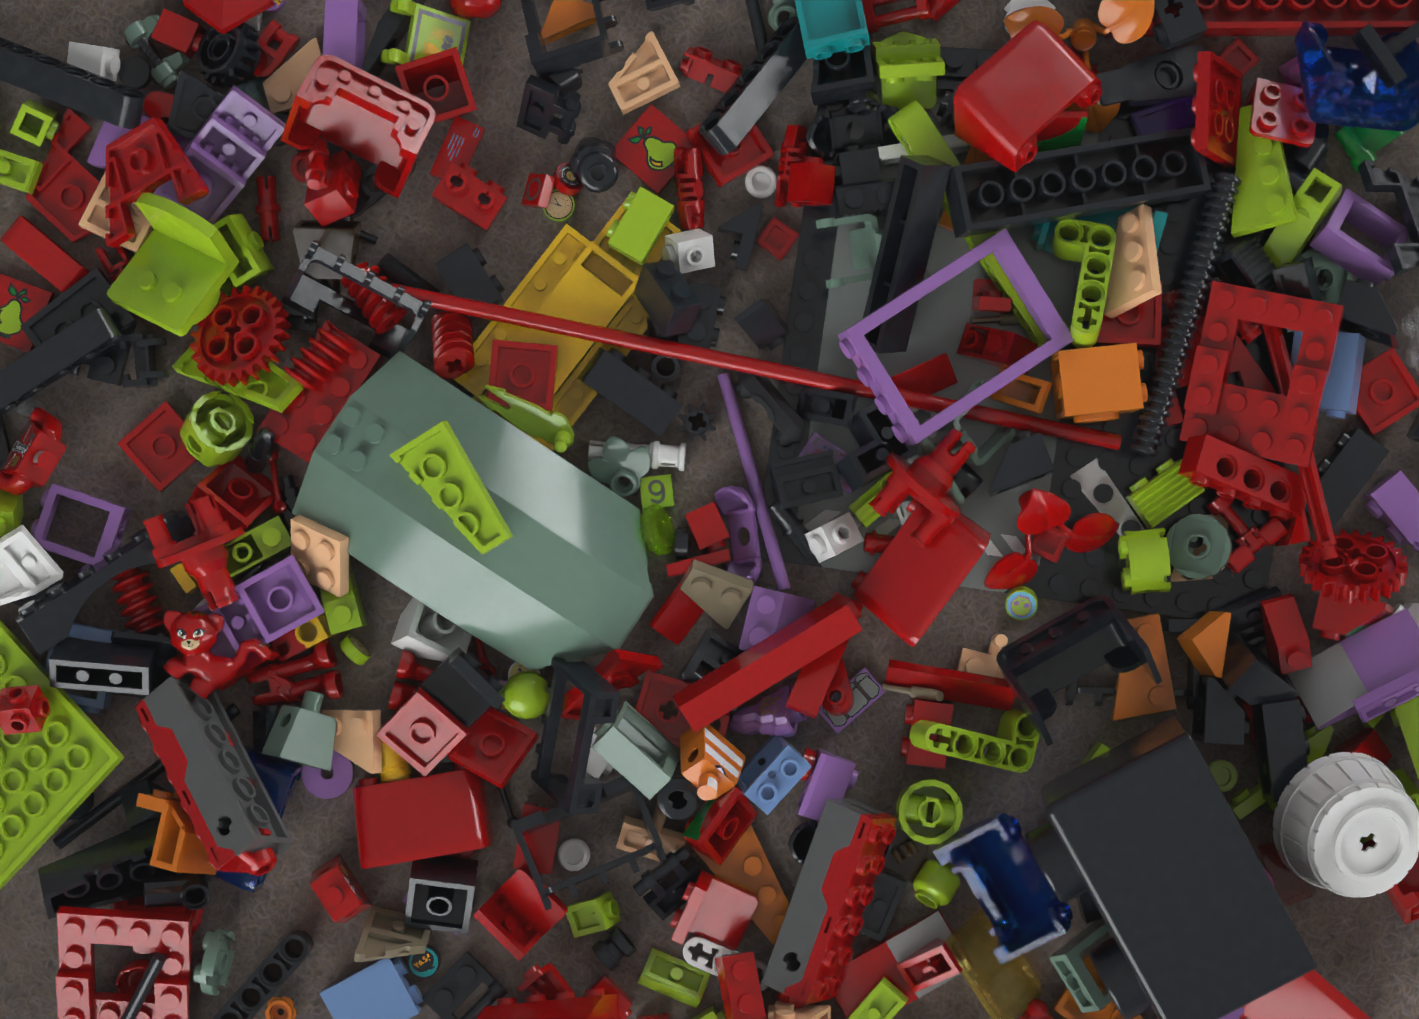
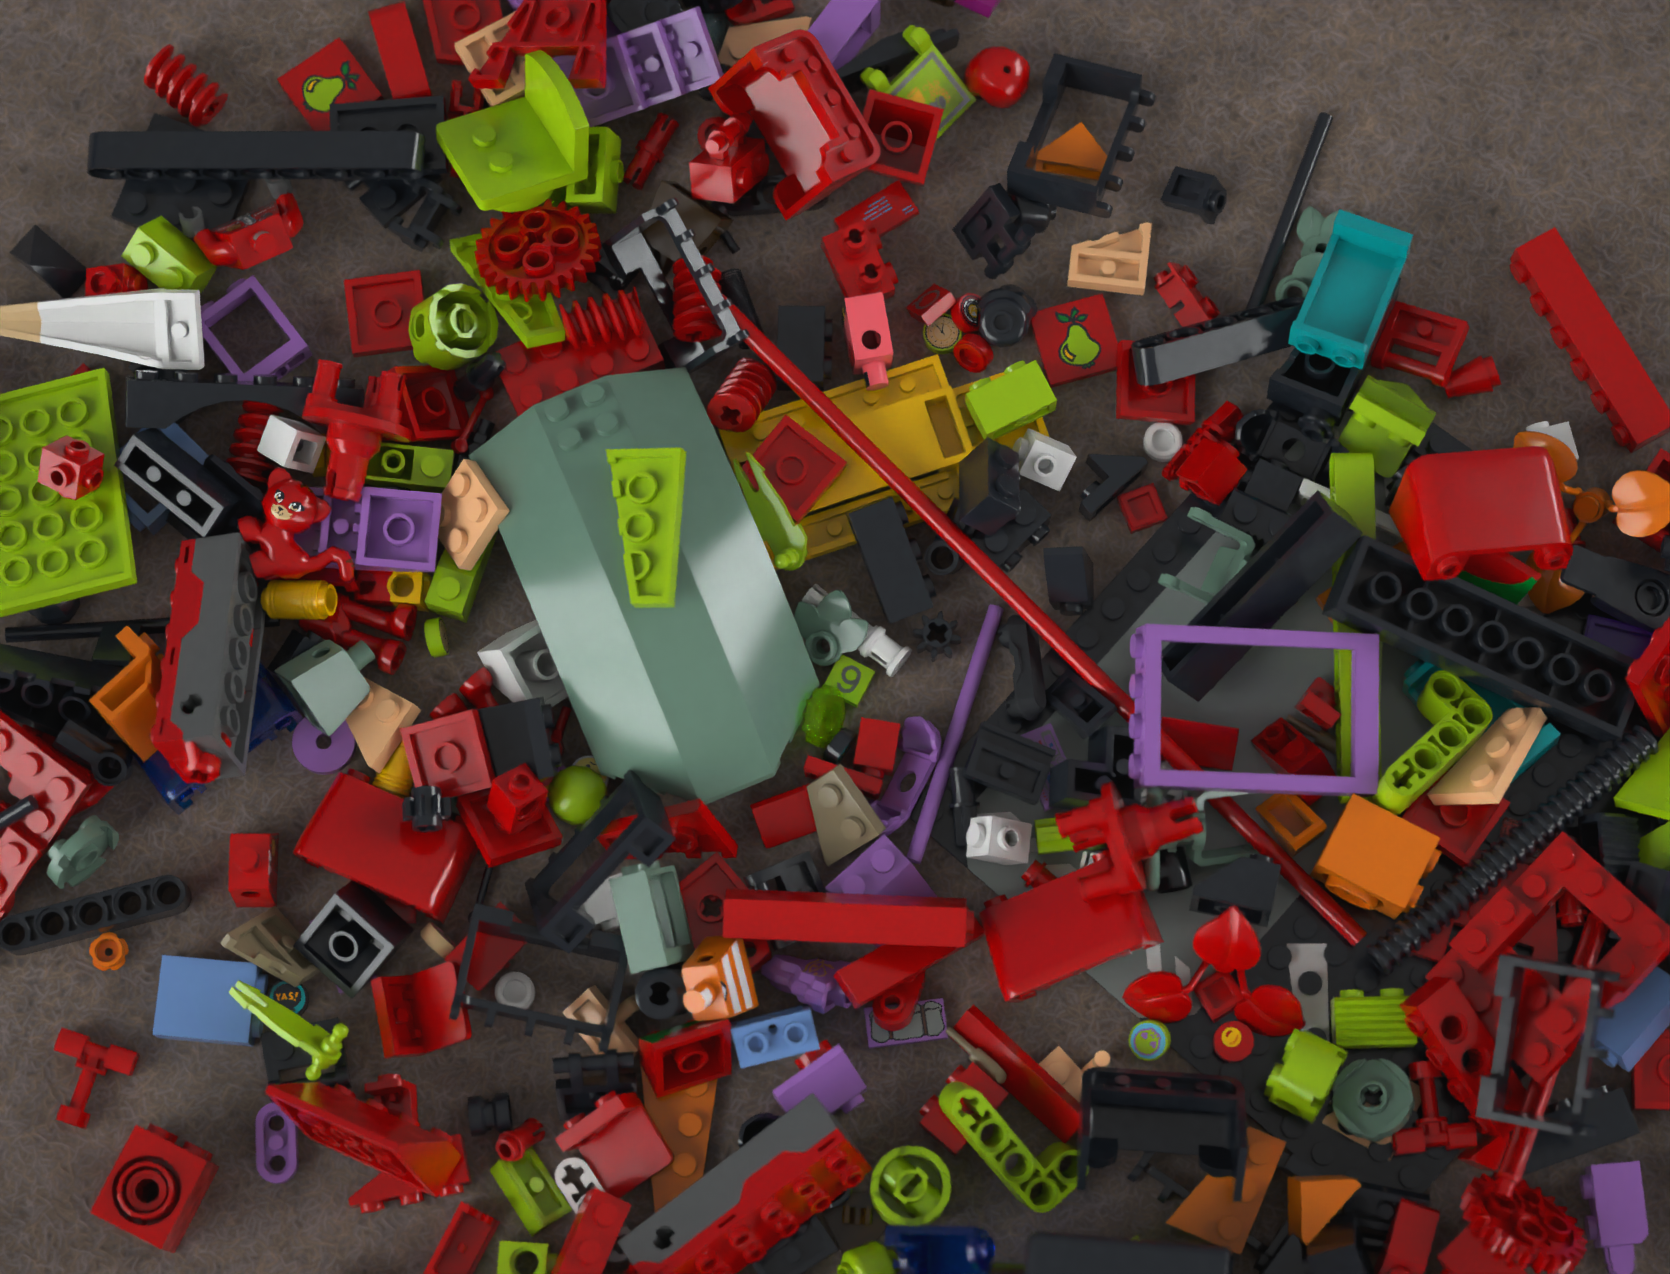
camera: 40 degrees right, 10 degrees down
(163, 587) = (291, 444): none -> white brick
(244, 690) = (299, 599): none -> yellow head
(432, 778) = (426, 809): none -> black gear
(443, 984) = (313, 1039): none -> lime piece
(489, 729) = (517, 798): none -> red brick
(499, 855) = (437, 939): none -> tan tile
(503, 236) = (866, 327): none -> coral torso
(590, 206) = (973, 353): none -> red tile
(593, 914) = (492, 1065): lime bracket -> none
(644, 959) = (514, 1143): none -> red pin
(689, 185) = (1084, 401): red hinge -> none
(1079, 568) = (1233, 1041): none -> red tile
(1278, 487) = (1494, 1085): none -> black hinge

